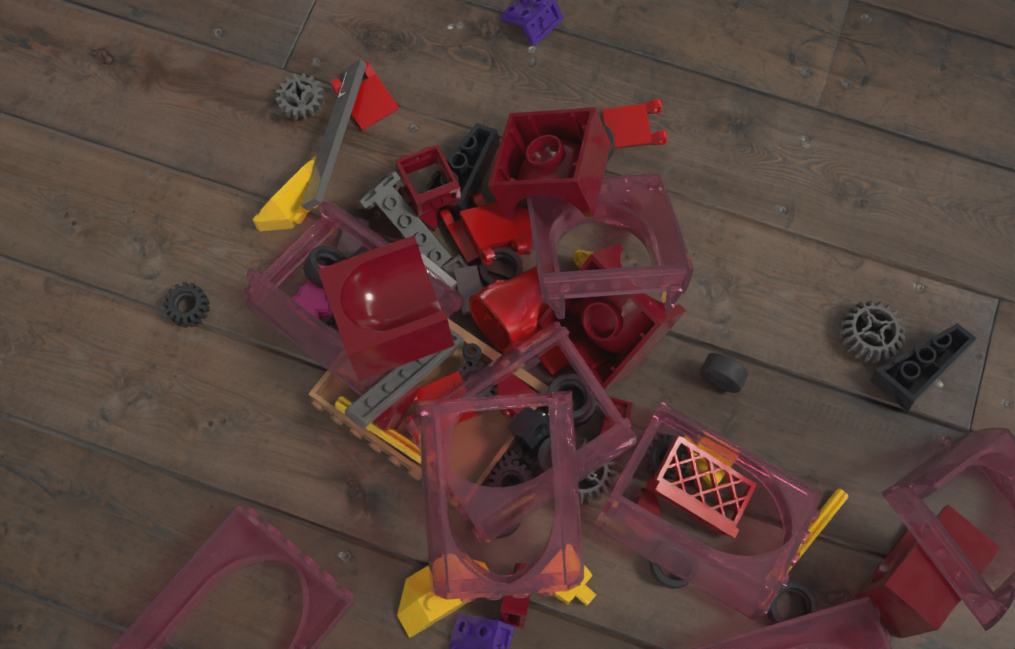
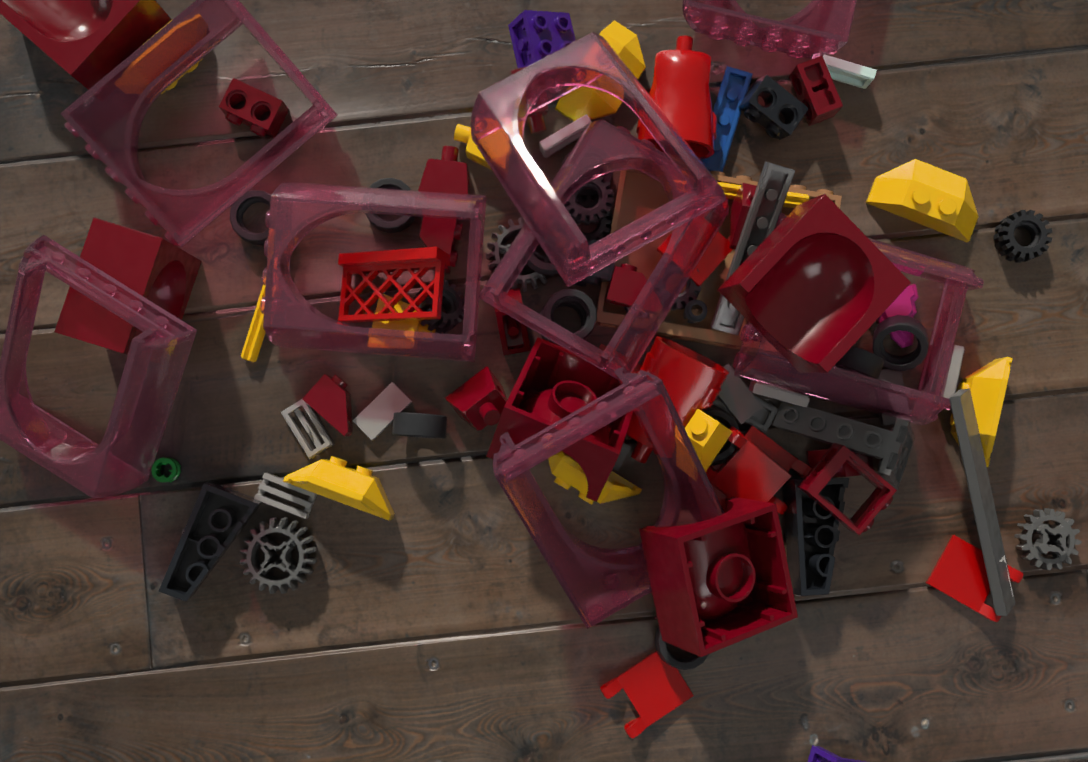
camera: 155 degrees right, 15 degrees up
(240, 368) = (927, 197): none -> yellow wedge
(245, 495) = (849, 72): none -> light aqua tile
(279, 488) = (815, 90): none -> dark red brick
(310, 219) = (953, 372): none -> light grey tile
(319, 493) = (776, 101): none -> black brick
(364, 505) = (730, 95): none -> blue tile
(392, 532) = (684, 96): none -> red torso
(501, 551) = (564, 136): none -> tile
(514, 260) = (706, 436): none -> yellow slope
(617, 564) = (446, 174): none -> dark red torso
(667, 370) = (479, 400): none -> dark red torso
(747, 403) = (381, 410): none -> light grey tile
(787, 424) = (332, 402): none -> dark red slope
(802, 359) = (344, 485): none -> yellow wedge
(826, 436) = (298, 434): none -> light grey tile
(850, 373) = (263, 487): none -> light grey tile
(938, 443) = (156, 470): none -> green bush

